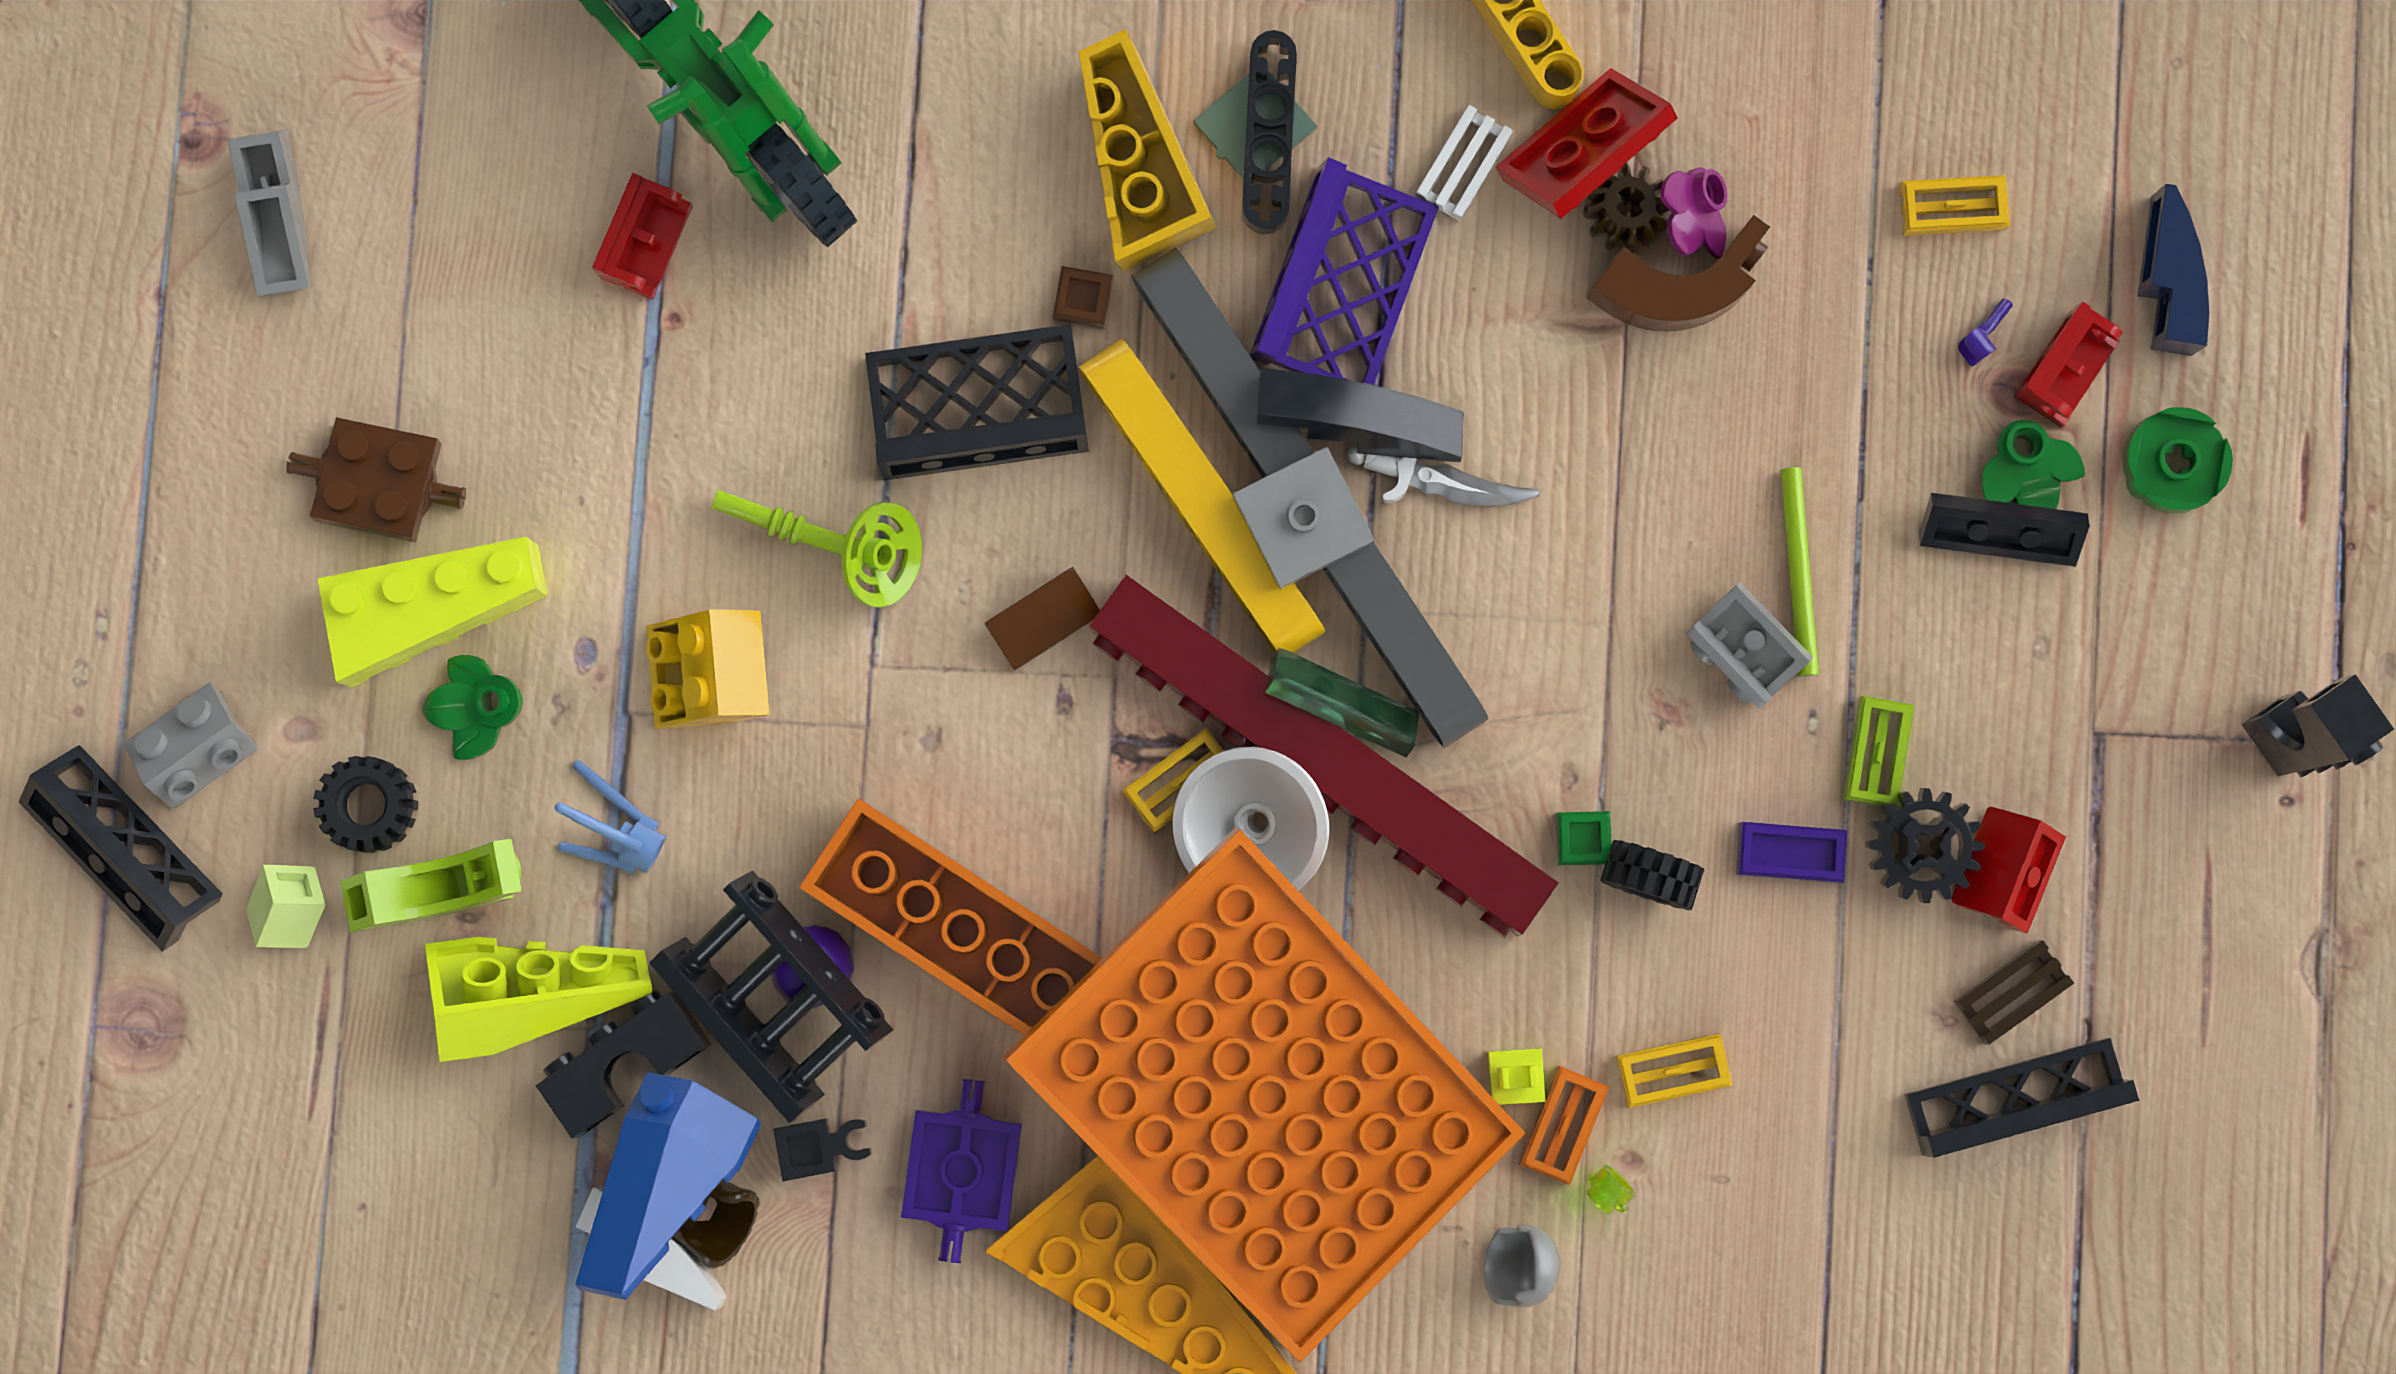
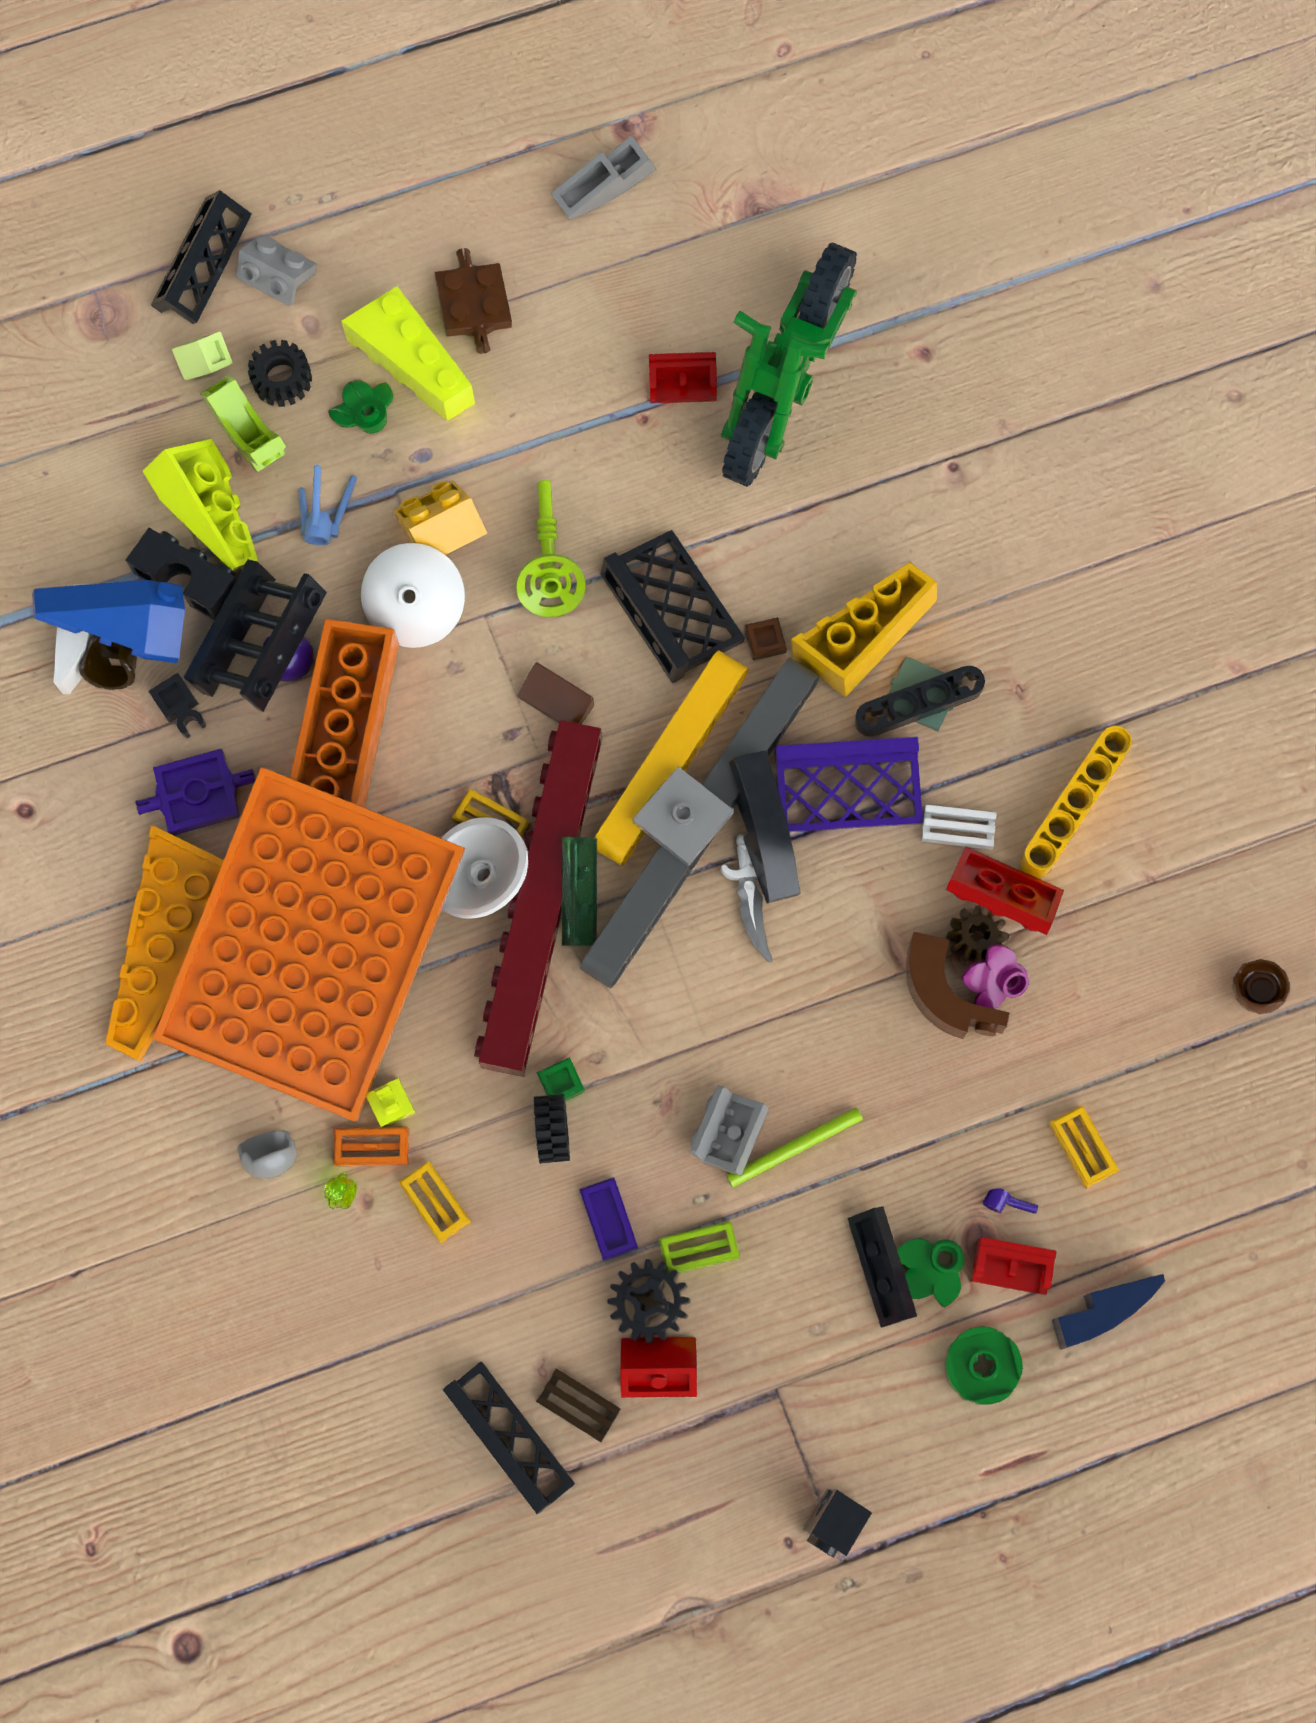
camera: 70 degrees right, 10 degrees down
(774, 746) = (437, 591): none -> white dish

